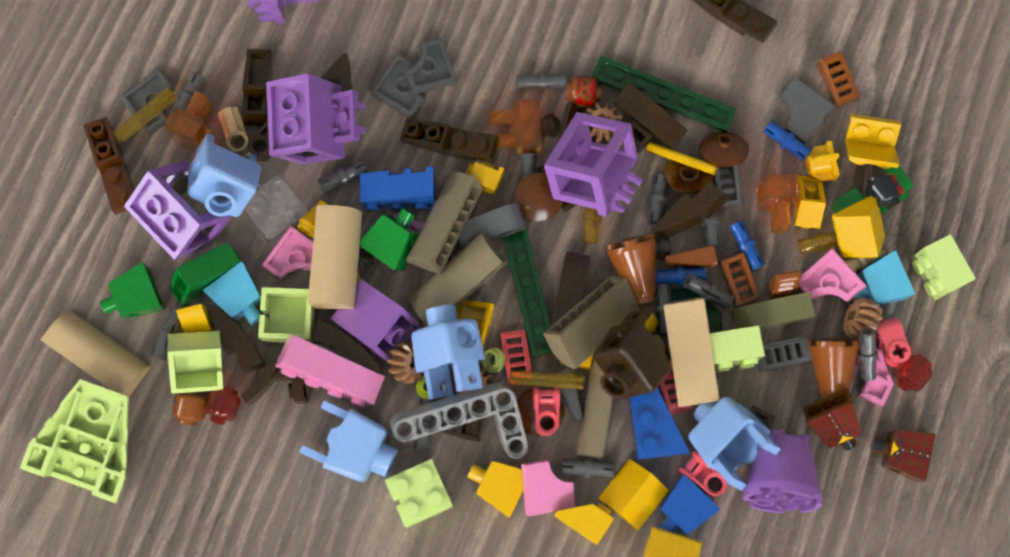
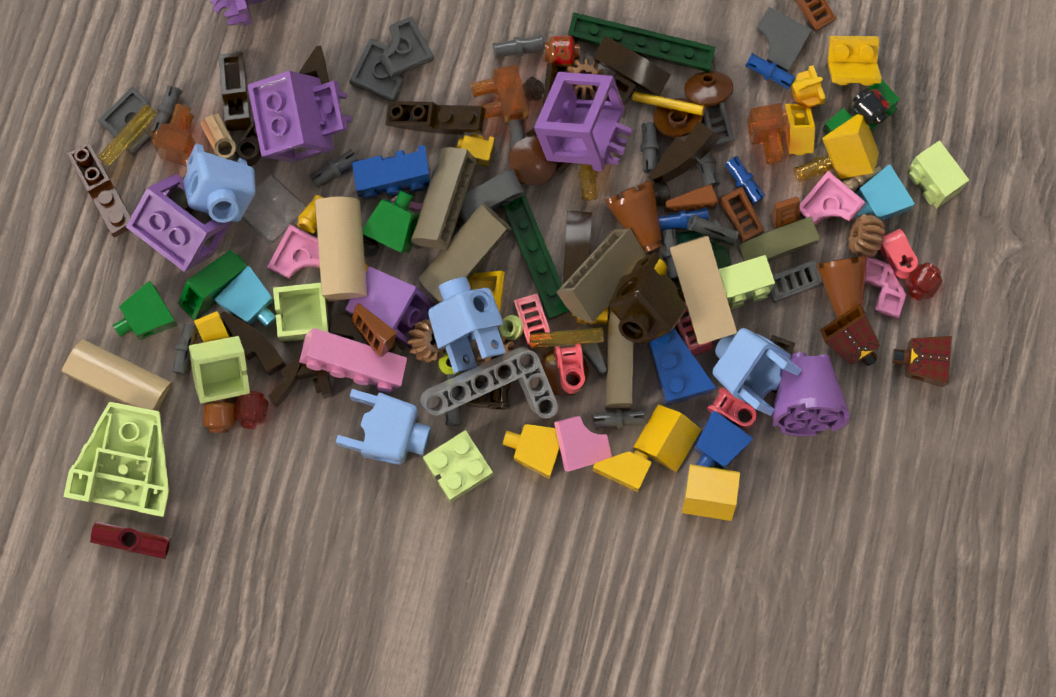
camera: 10 degrees left, 0 degrees up
(67, 515) = (145, 544): none -> dark red piece
(356, 347) = (374, 330): none -> dark orange slope
(867, 354) = (875, 268): dark grey pin -> none

